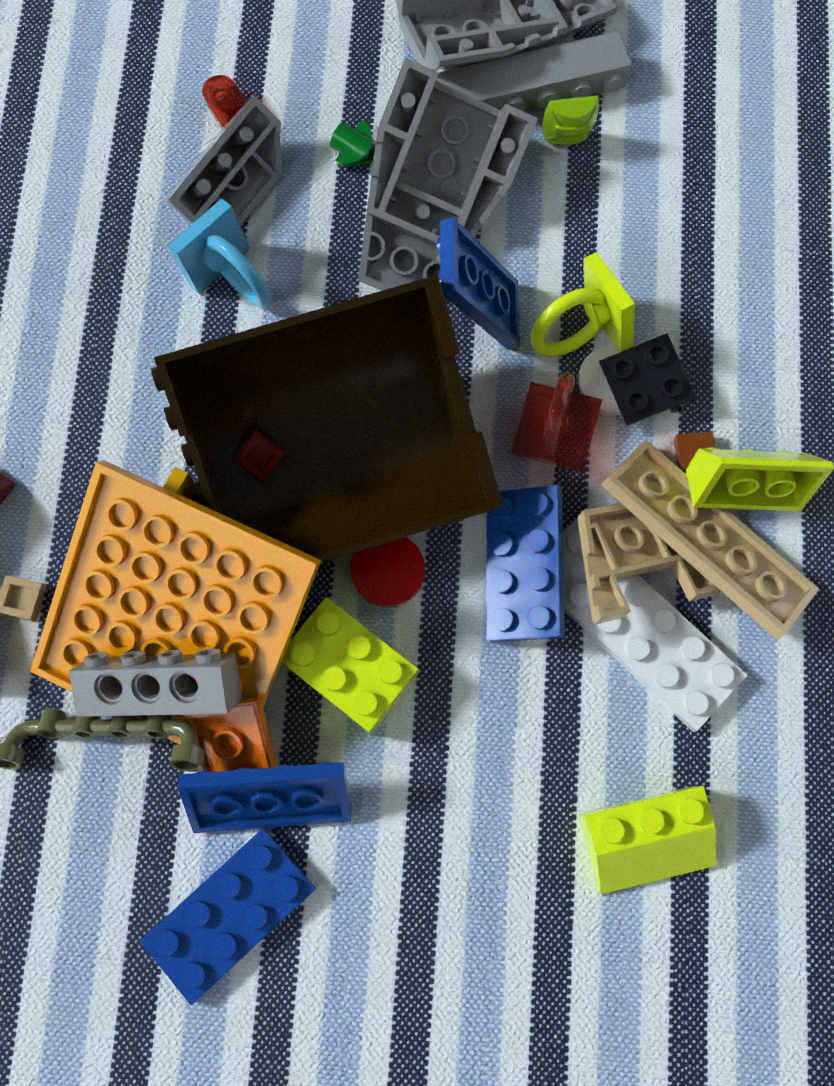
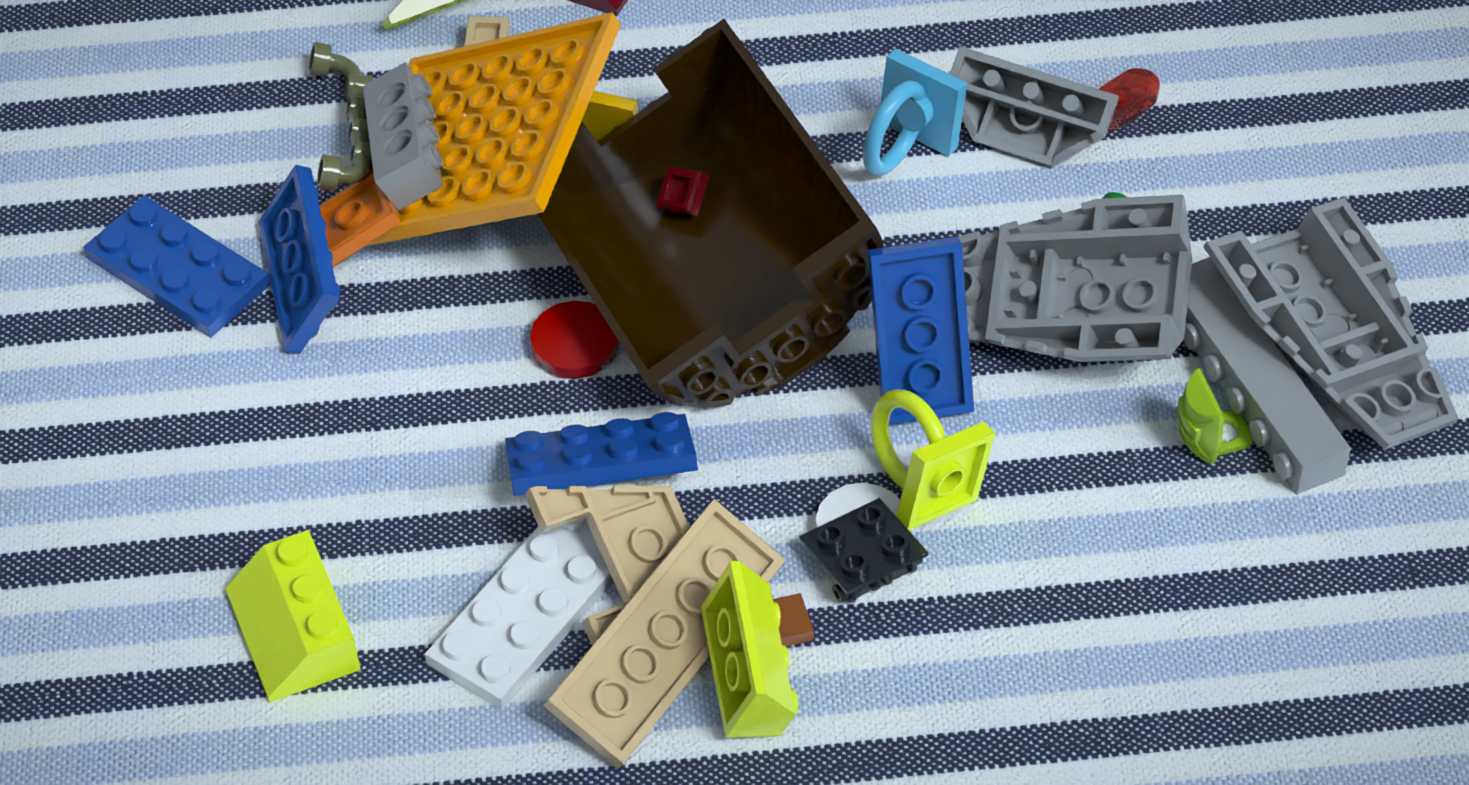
camera: 80 degrees right, 25 degrees down
(348, 665) = (453, 312): neon yellow brick -> none
(557, 424) = (778, 465): clear red tile -> none

